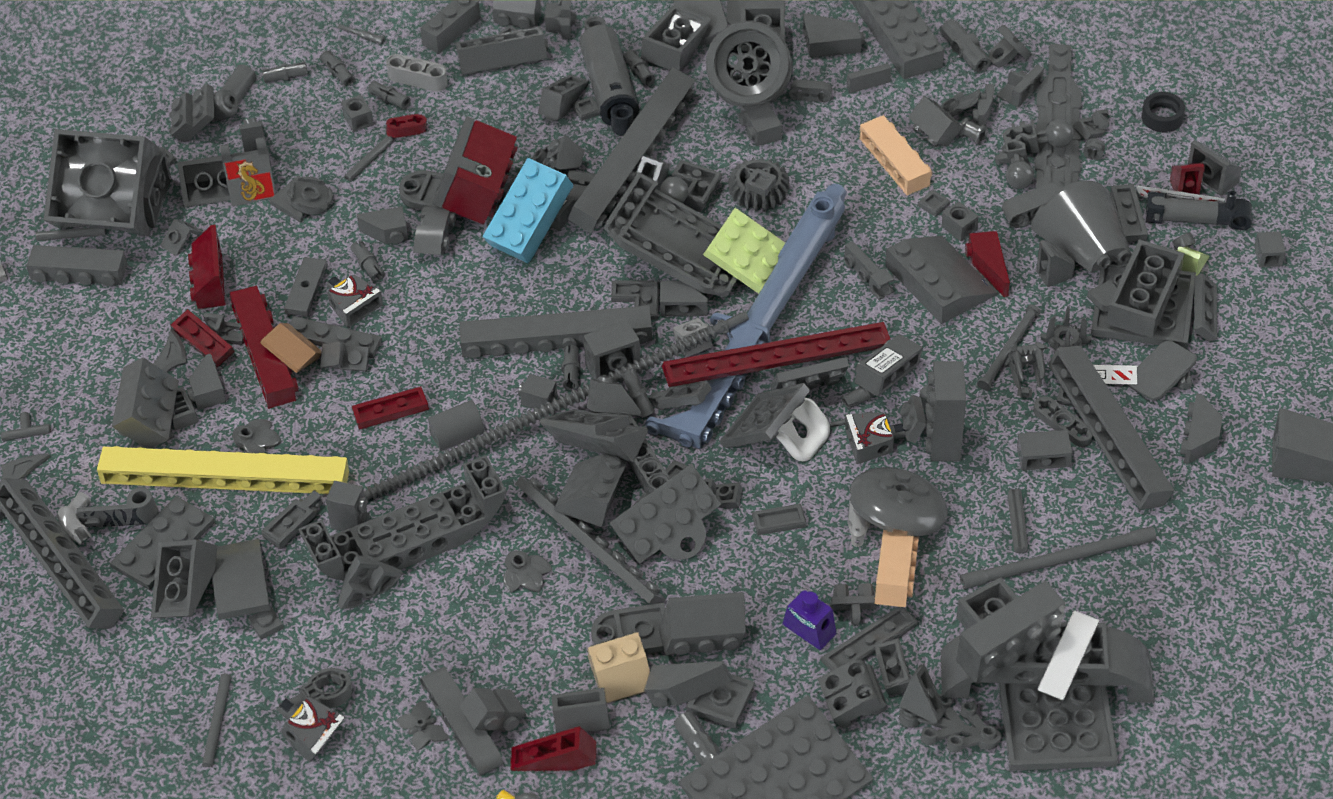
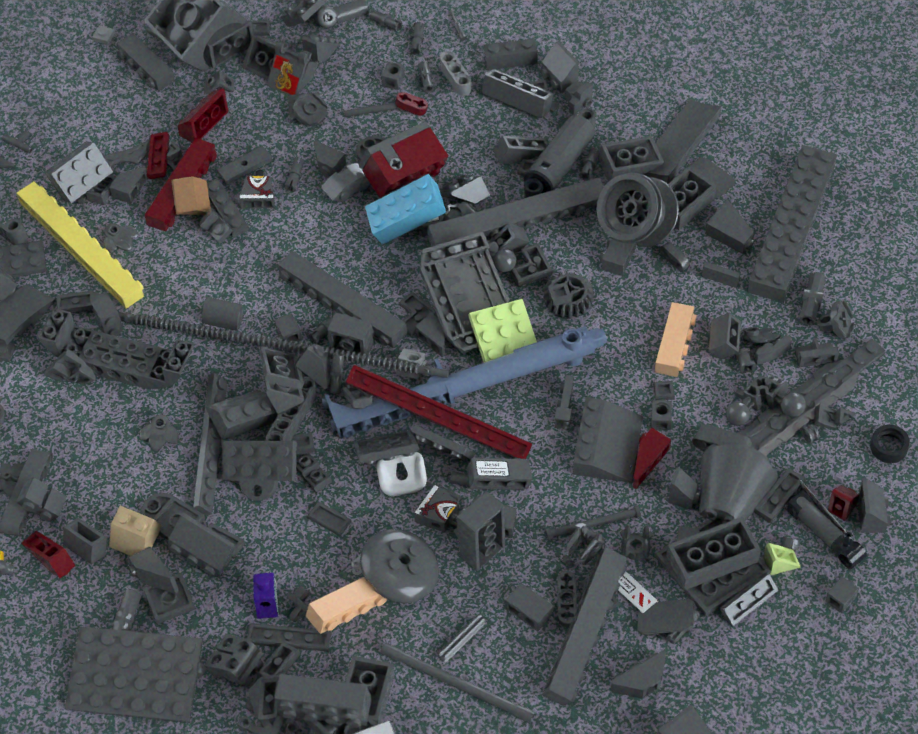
camera: 45 degrees right, 5 degrees up
(390, 407) = (203, 275): dark red plate -> none

